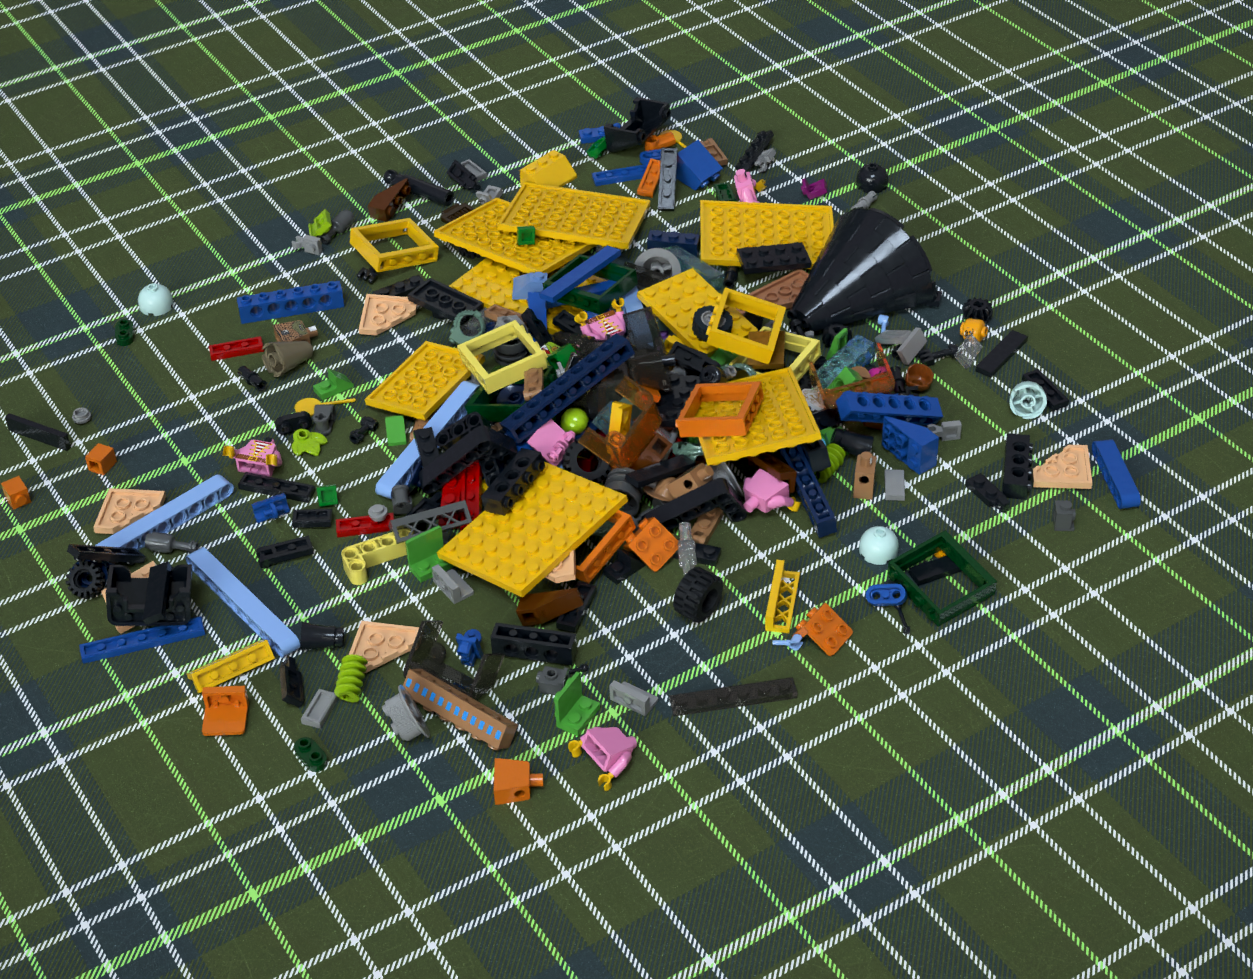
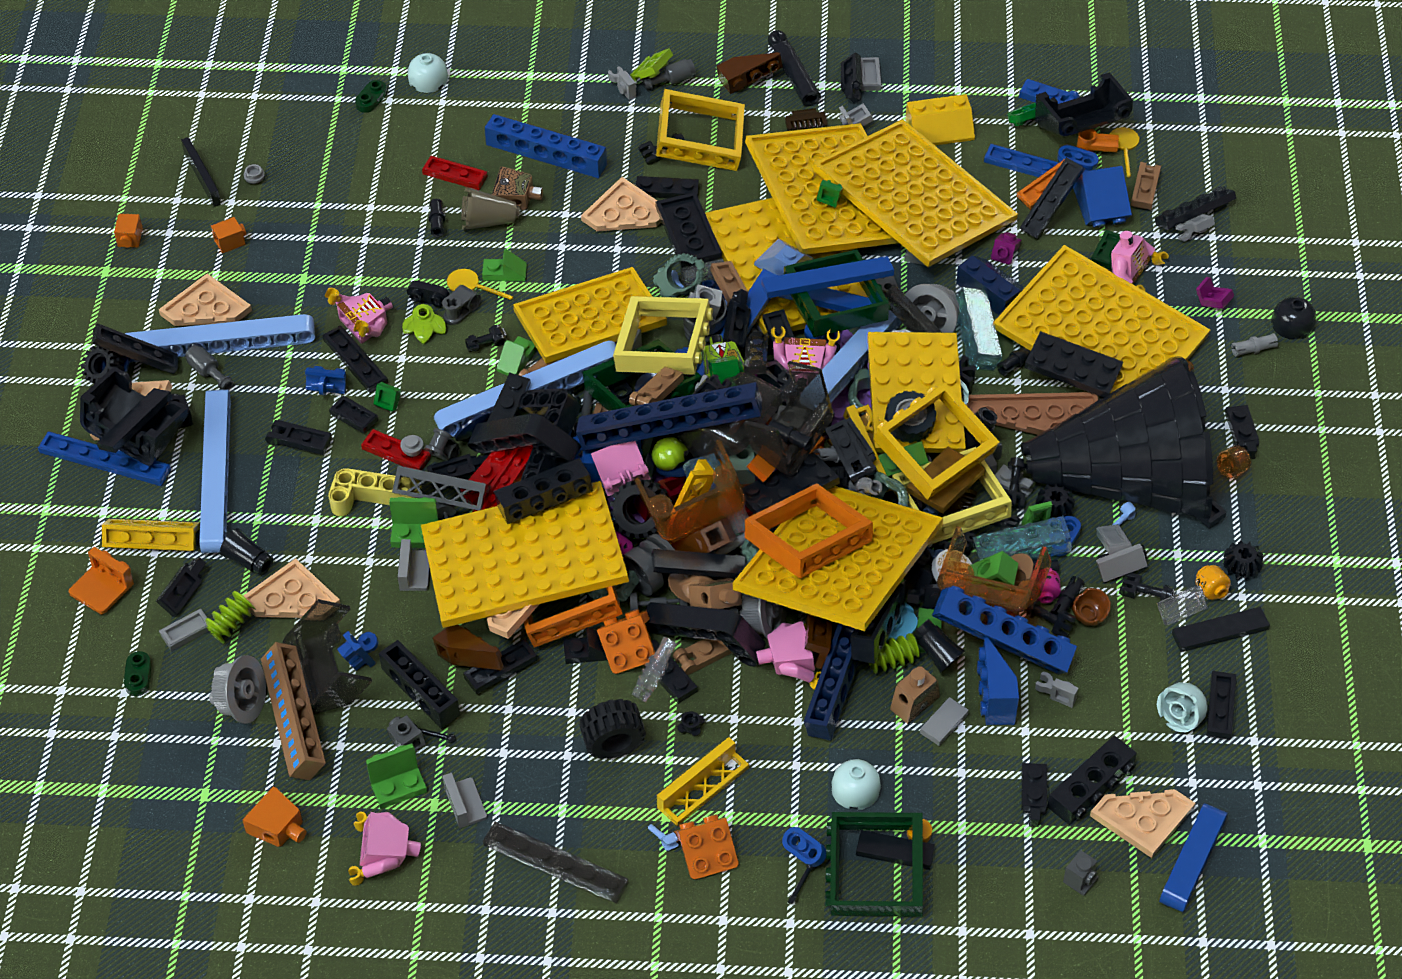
camera: 35 degrees right, 10 degrees up
(661, 221) = (1004, 247): none -> magenta bracket
(712, 374) = (846, 484): black head -> none
(738, 570) = (691, 717): none -> black plate

